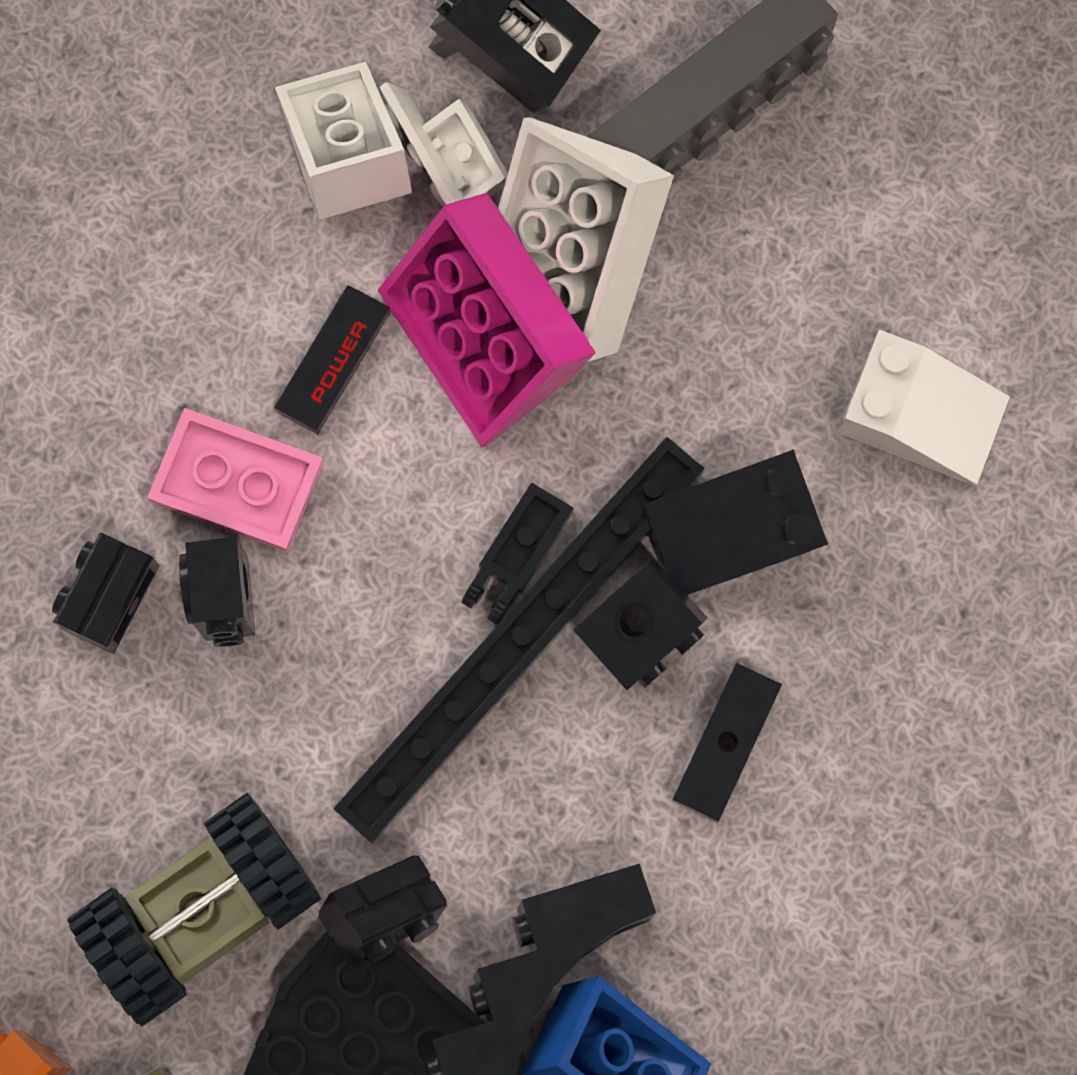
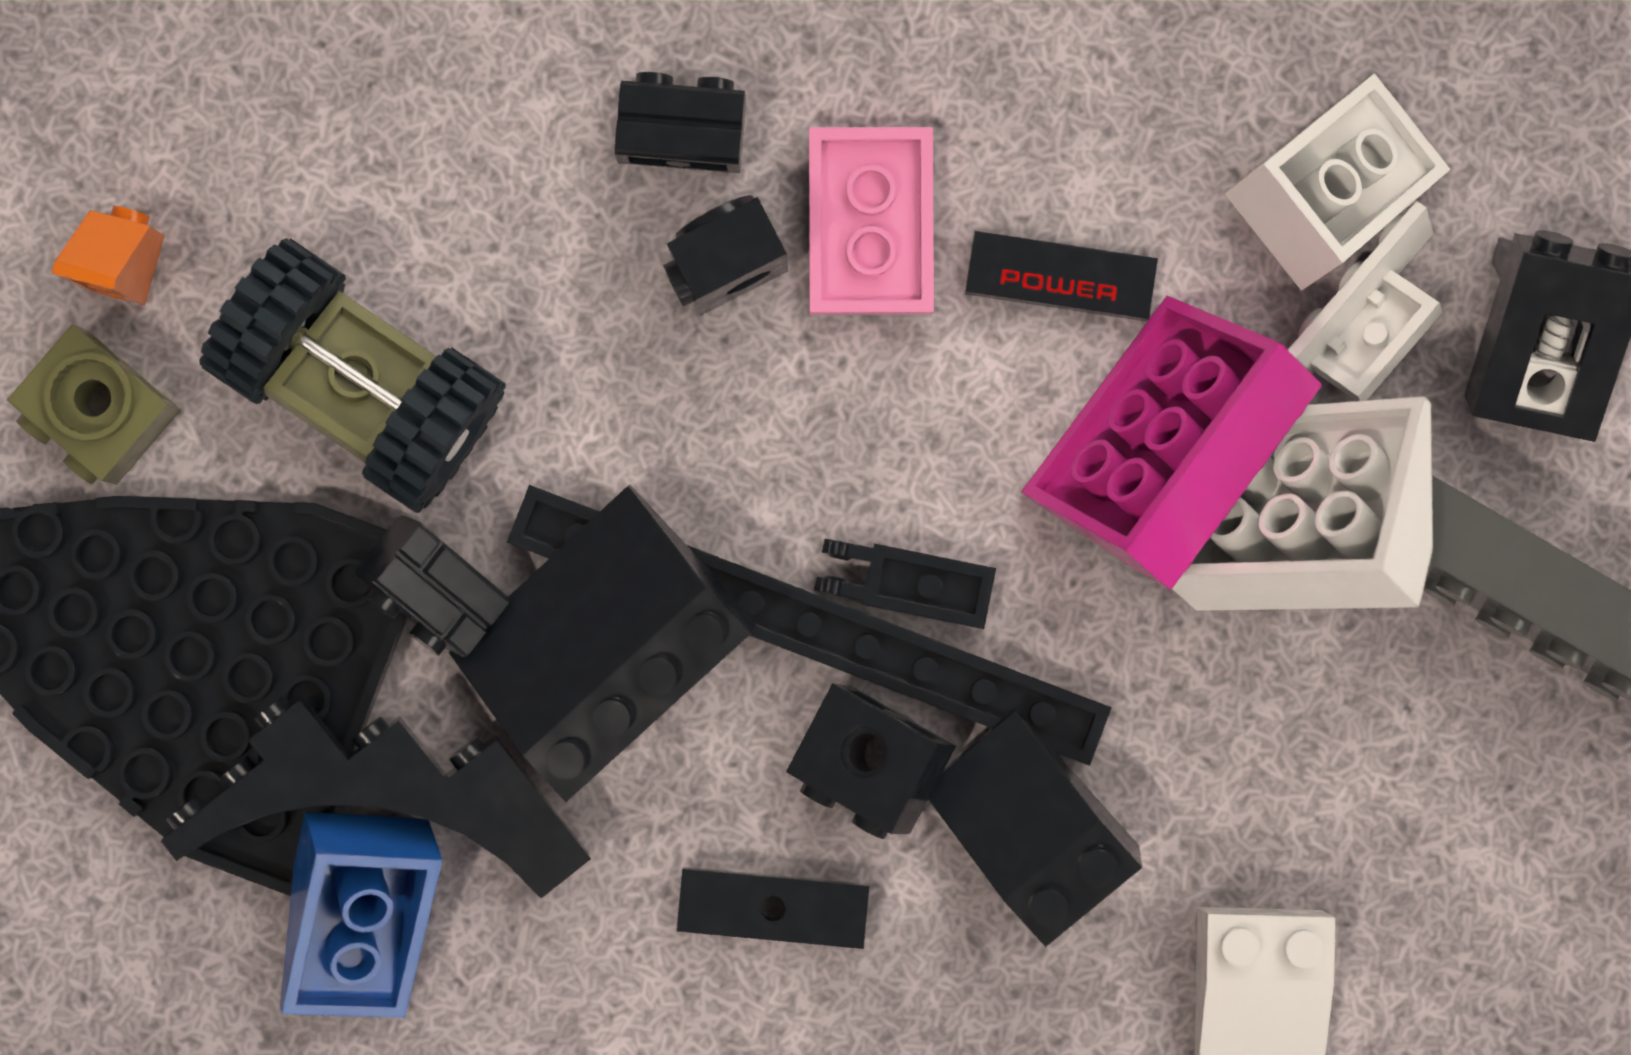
camera: 70 degrees right, 10 degrees up
(476, 794) = (602, 642): none -> black slope

